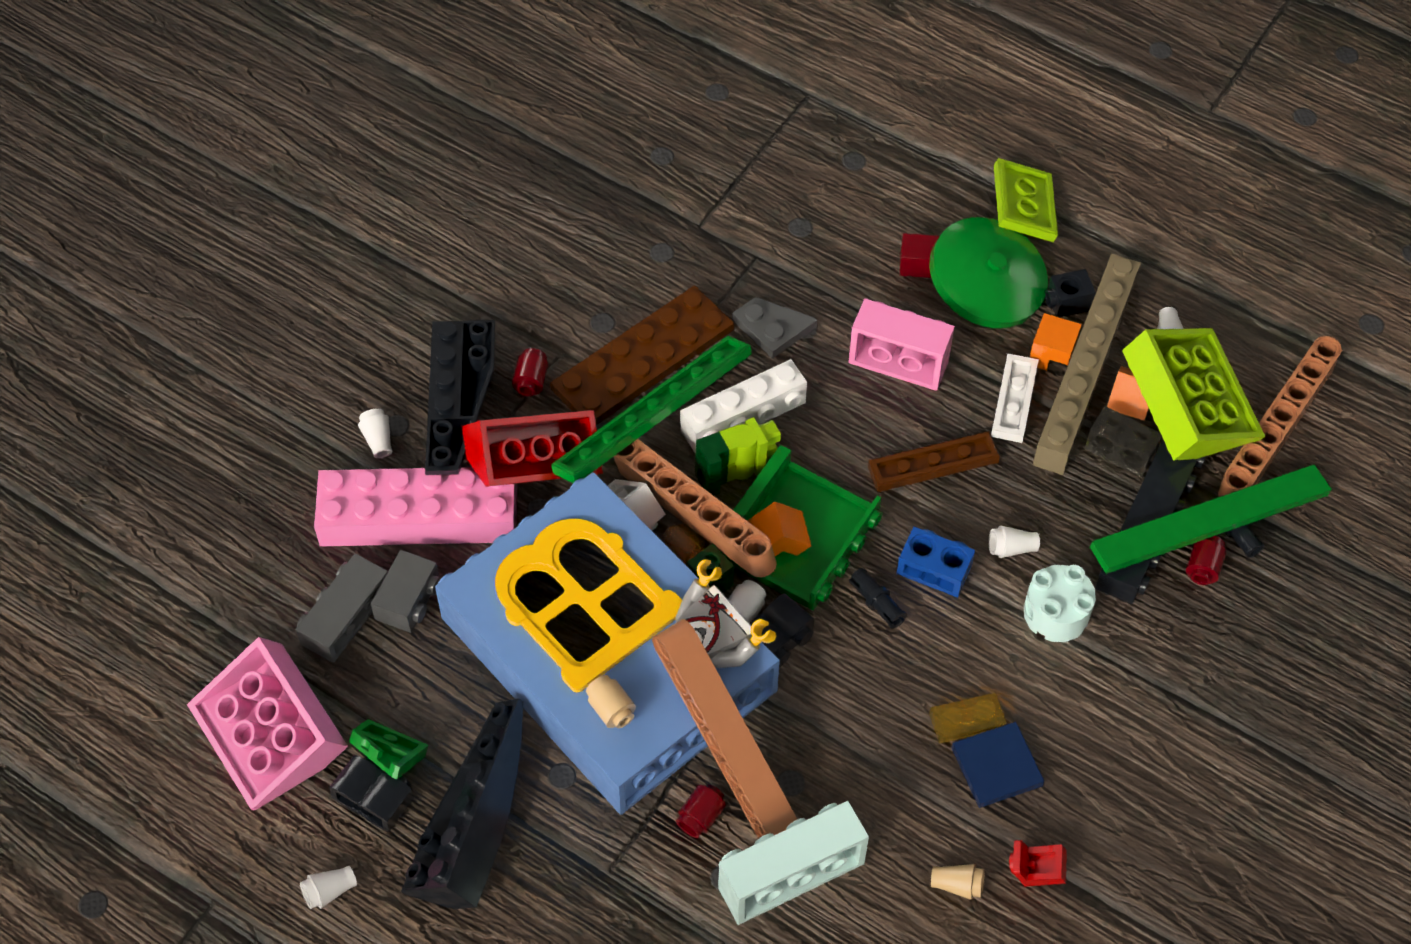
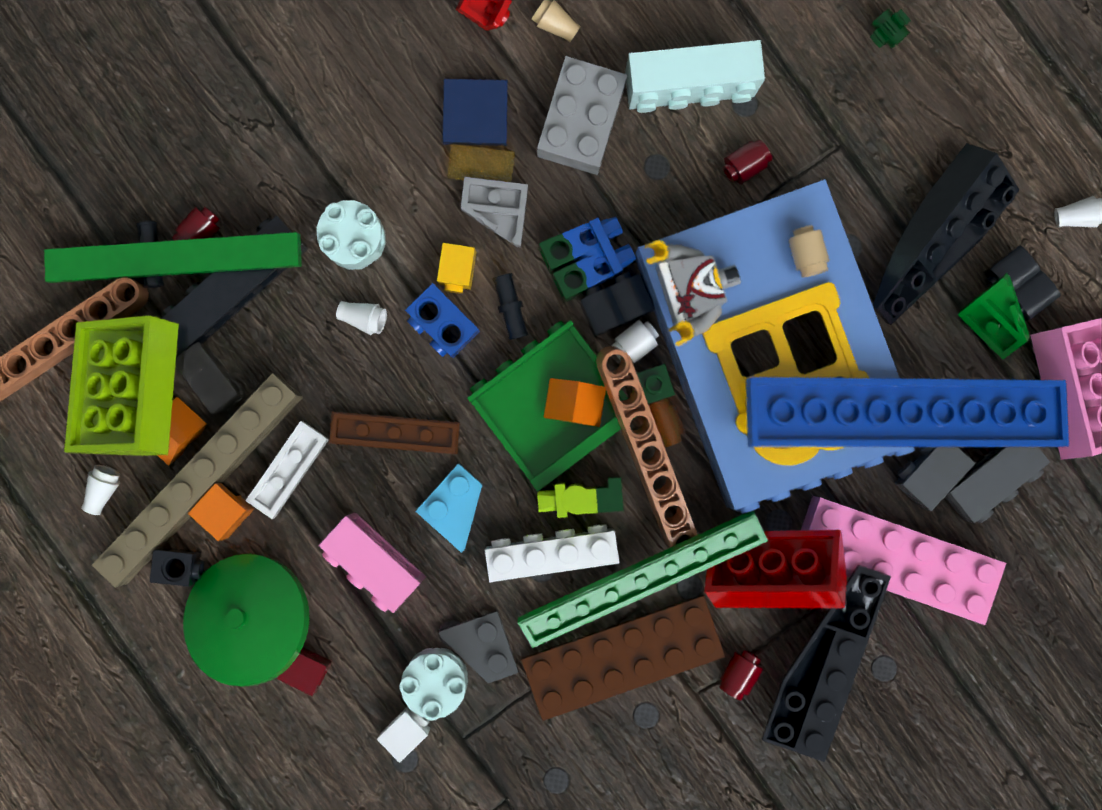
camera: 165 degrees left, 30 degrees up
(376, 431) = (909, 661): white cone -> none
(457, 597) = (905, 412): none -> blue plate
(639, 500) = (700, 487): white slope -> none
(723, 729) = (716, 196): nougat beam -> none
(802, 278) = (434, 683): none -> light aqua brick
(810, 238) = (404, 734): none -> white brick
(825, 663) = (596, 256): none -> blue hips
(851, 421) = (453, 506): none -> medium azure wing
(890, 789) = (581, 115): none -> light grey brick
(933, 681) = (496, 206): none -> light grey wing
(945, 612) = (456, 267): none -> yellow brick
(1025, 200) = (166, 696): lime tile -> none

